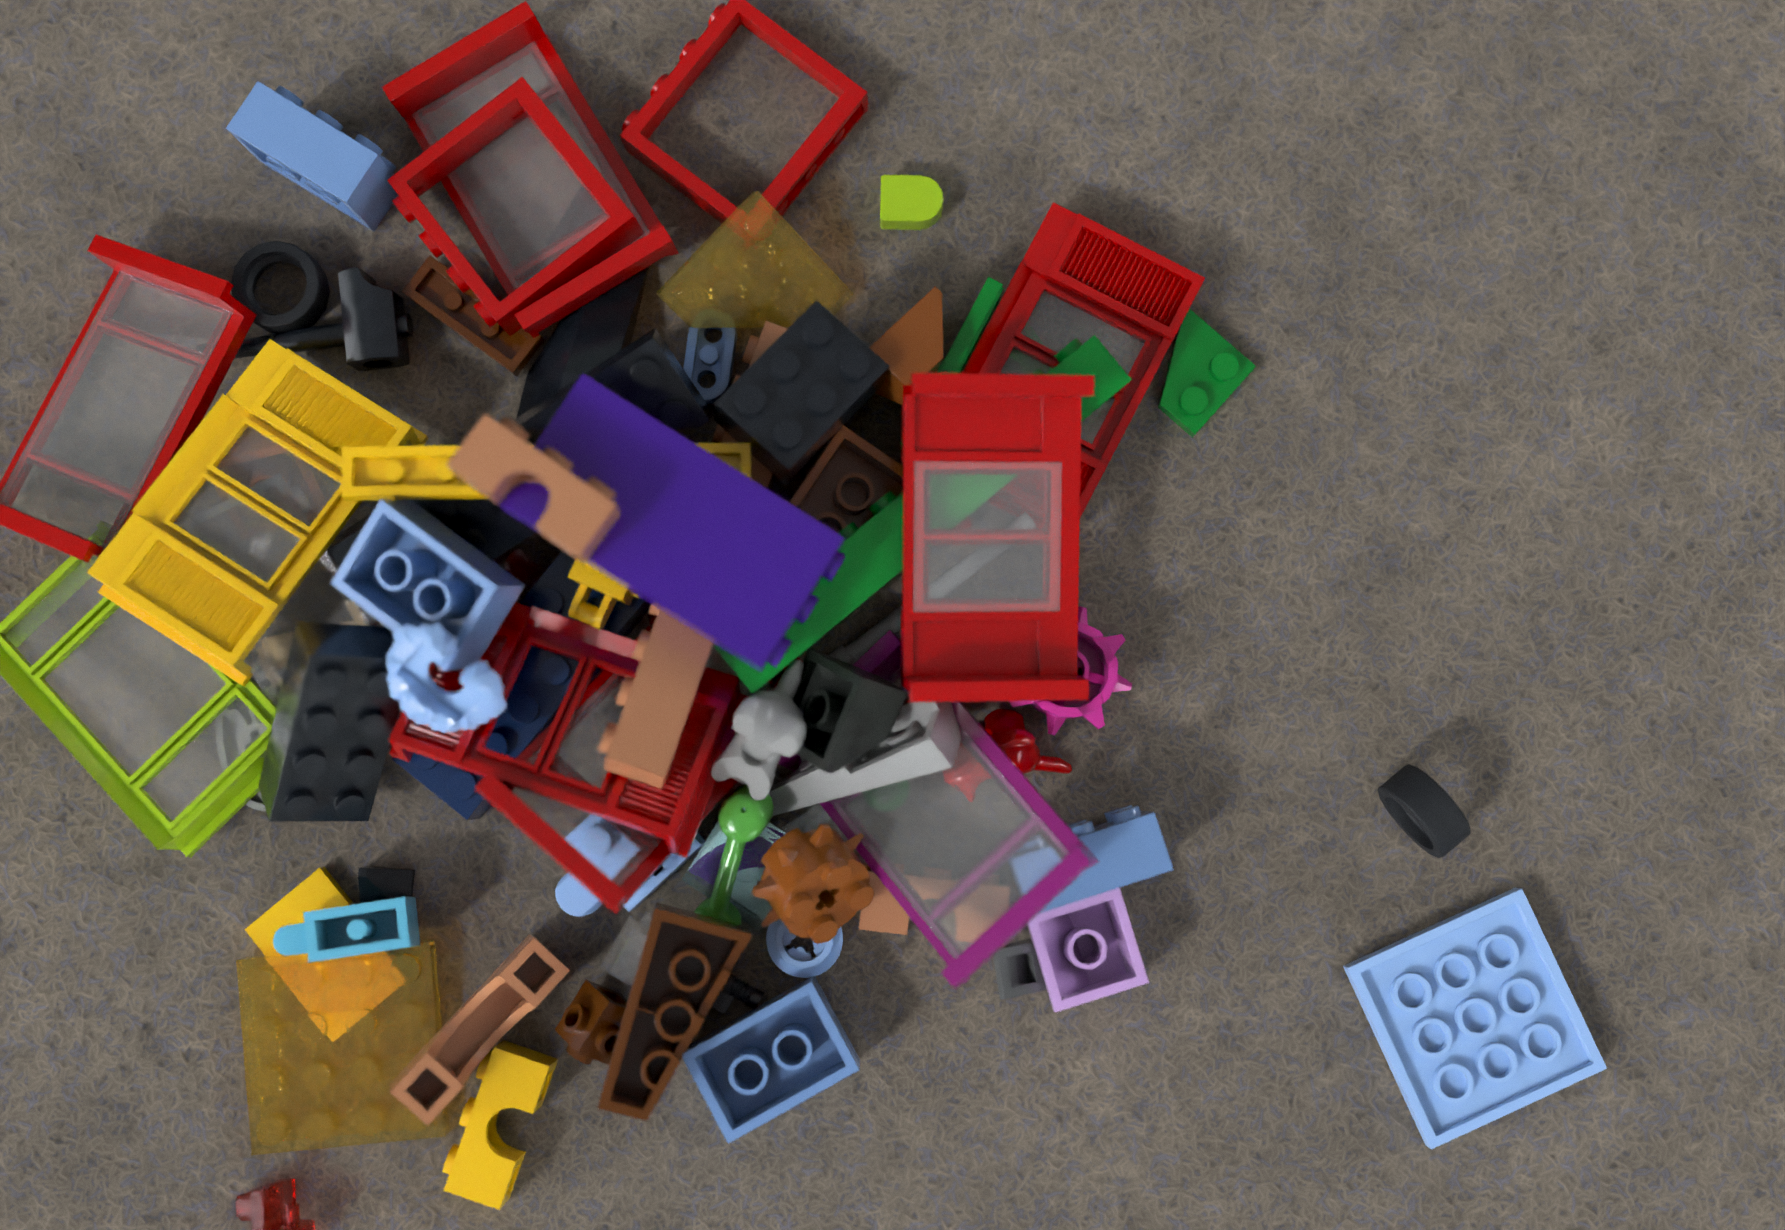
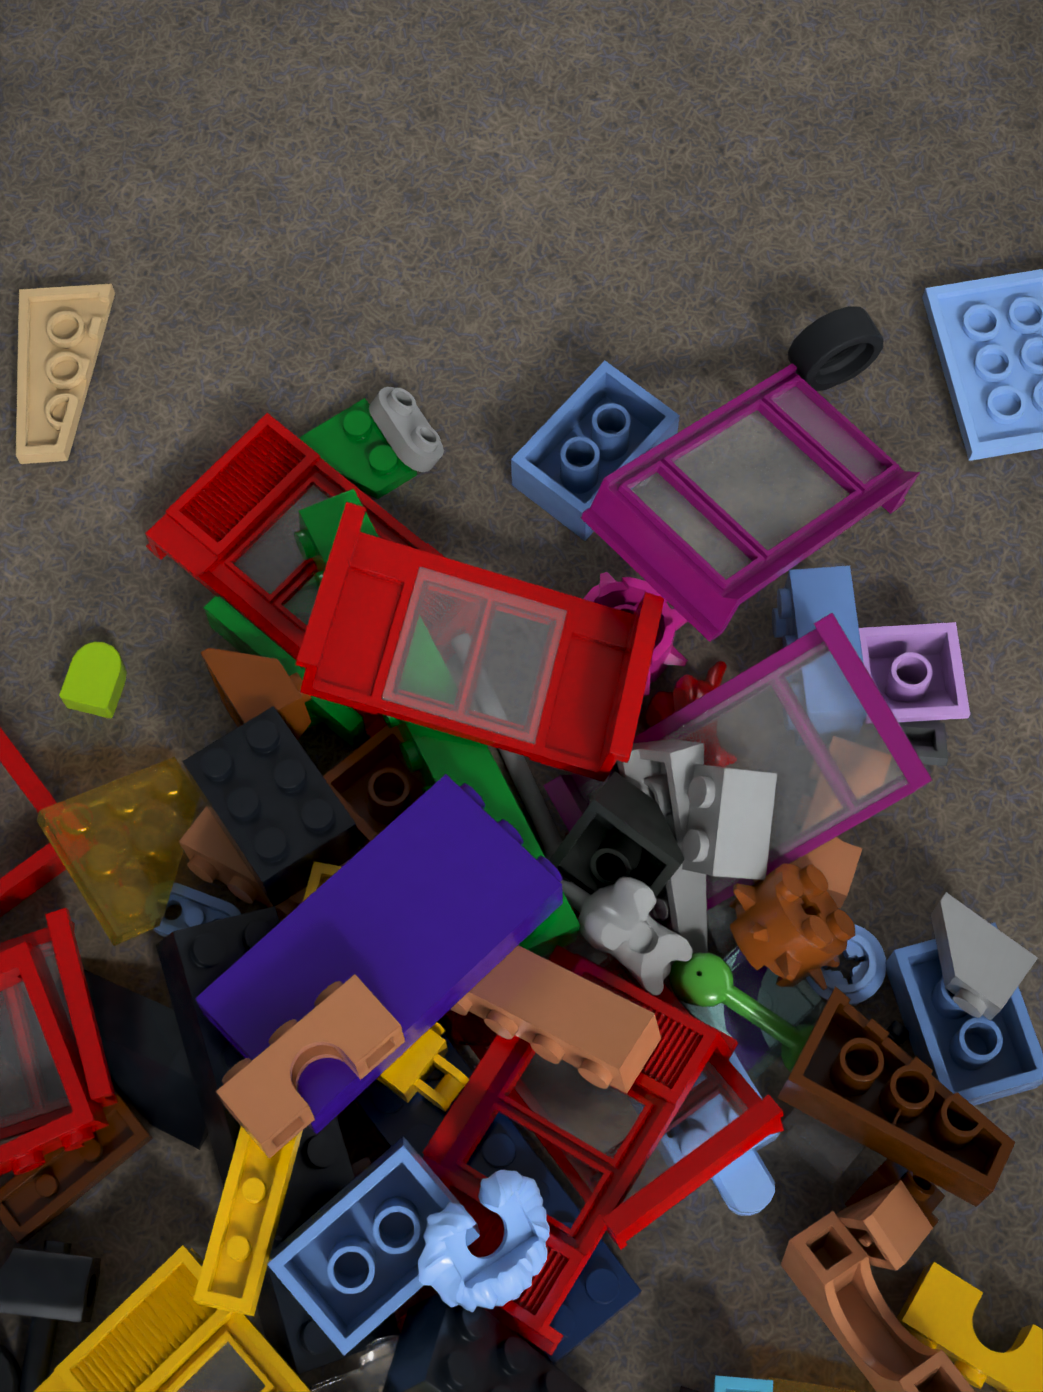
camera: 75 degrees left, 15 degrees down
(558, 1020) = (887, 1225): none -> nougat slope
(810, 1060) = (977, 959): none -> light grey slope
(886, 807) = (729, 822): none -> light grey brick
(1222, 65) = (56, 359): none -> tan wing
(1223, 756) = (743, 497): none -> piece
(1232, 414) = (406, 429): none -> light grey plate
(1252, 599) = (587, 439): none -> medium blue brick

